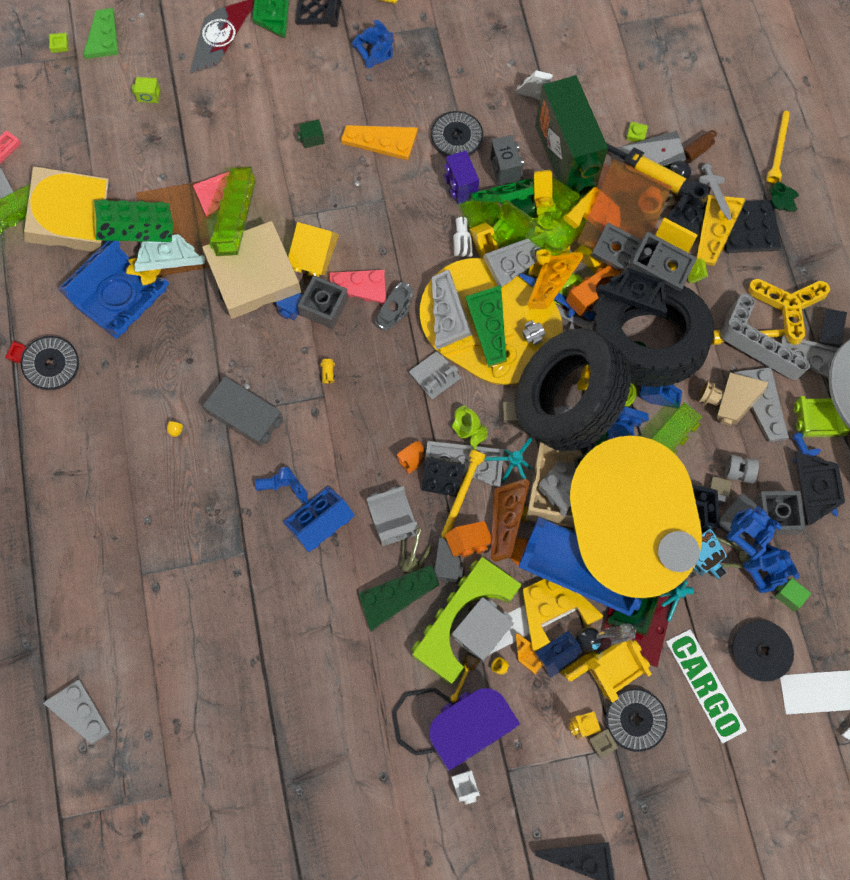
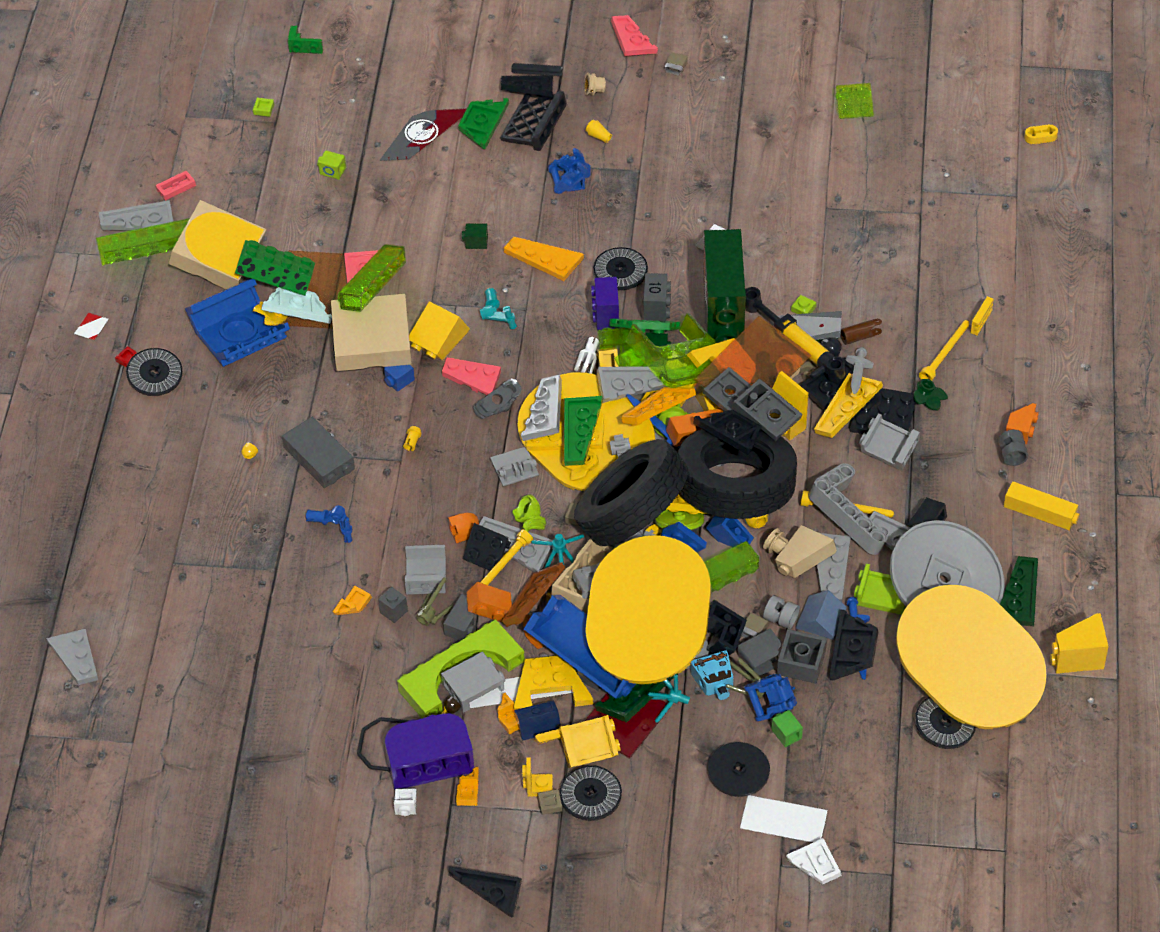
camera: 20 degrees right, 20 degrees down
(102, 36) = (308, 110): bright green wing -> none
(319, 518) = (355, 556): blue slope -> none
(323, 302) = (429, 378): dark grey brick -> none
(335, 570) = (354, 602): none -> light orange slope
(352, 212) = (490, 312): none -> teal pin
(375, 565) = (393, 605): none -> dark grey brick
(396, 595) = (392, 634): dark green wing -> none
(496, 663) = (478, 716): yellow hinge -> none
(519, 751) = (468, 789): none -> light orange slope
(543, 190) = (684, 327): yellow bracket -> none
(543, 256) = (656, 384): yellow hinge -> none
(587, 638) = (571, 712): black piece -> none
(618, 633) = (605, 709): clear plate -> none
(678, 551) = (676, 644): light grey tile -> none
(698, 271) = (810, 437): lime plate -> none
(706, 686) = (671, 785): sticker -> none
(756, 524) = (767, 650): blue piece -> none
(771, 259) = (889, 442): none -> light grey panel
(775, 459) = (821, 615): none -> sand blue slope
(787, 310) = (895, 487): yellow piece -> none
(800, 103) = (982, 316): none -> yellow tile

